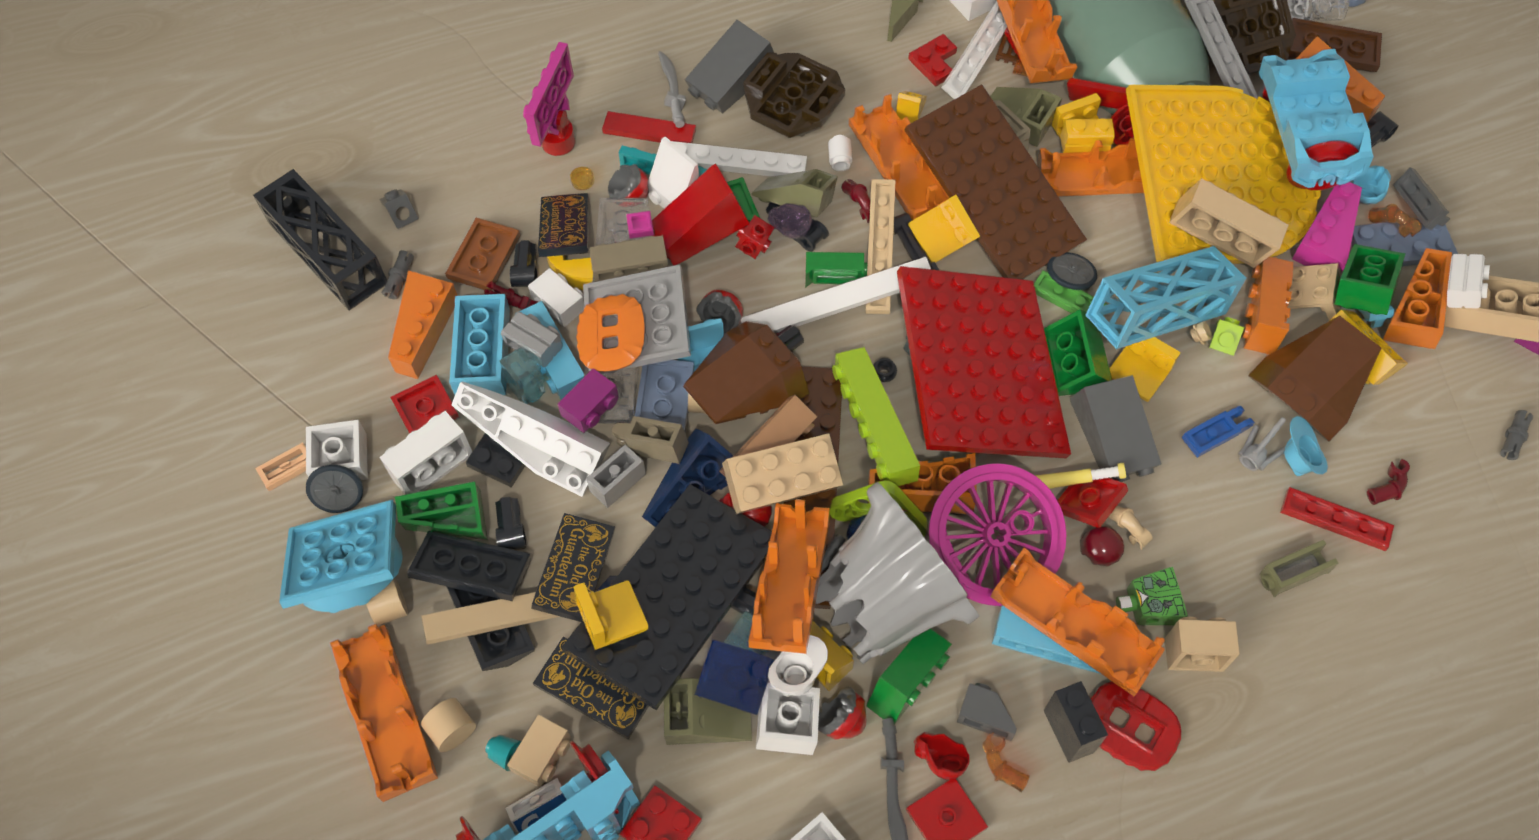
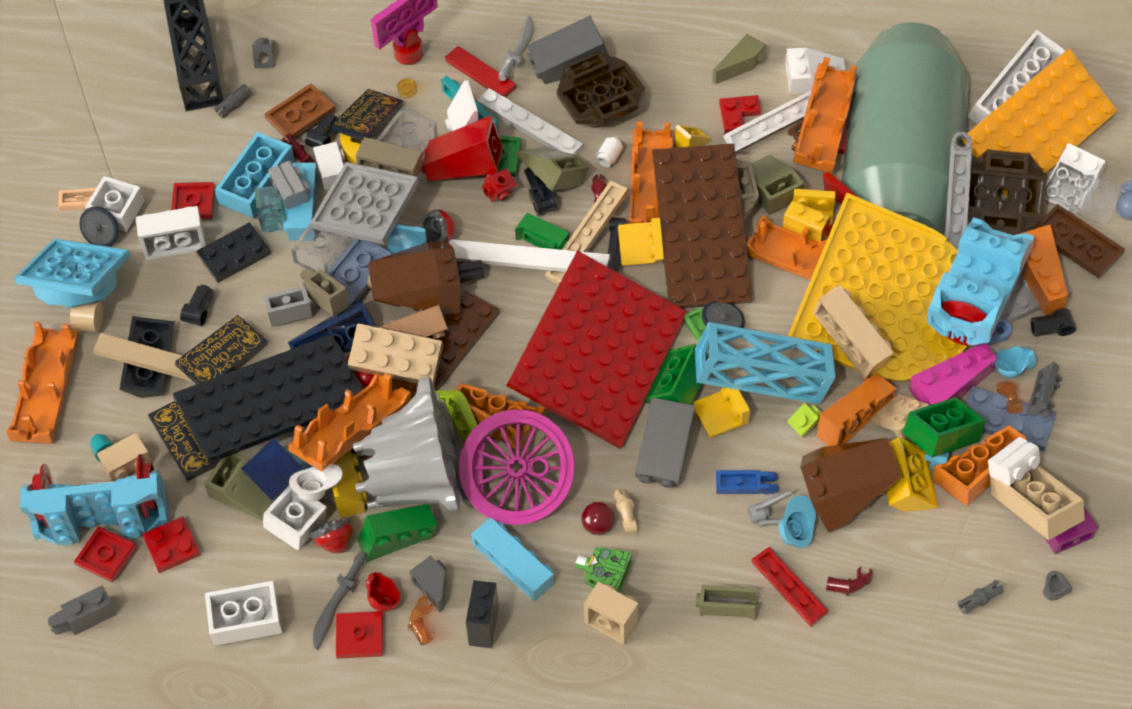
camera: 30 degrees right, 5 degrees down
(420, 321) = (224, 140): orange wedge -> none
(444, 510) = (160, 275): green wedge -> none
(448, 724) = (77, 412): tan piece -> none
(469, 565) = (153, 318): black tile -> none
(534, 436) = (249, 253): white wedge -> none
(588, 401) = (296, 243): magenta brick -> none
(610, 613) = (213, 385): yellow bracket -> none
(628, 183) = (434, 107): dark grey hair -> none
(629, 330) = (351, 207): orange piece -> none
(639, 224) = (416, 138): dark pink tile -> none
(790, 220) = (530, 184): clear purple hair -> none
(875, 417) = (489, 348): lime brick -> none
(885, 364) = (528, 319): black plate -> none
(1069, 478) = (597, 457): light yellow piece -> none
(1083, 626) = (530, 550): orange piece -> none
(1092, 500) = (610, 480): red plate -> none
(1142, 709) = (515, 652): red piece -> none
(1201, 332) = (787, 407): tan plate -> none

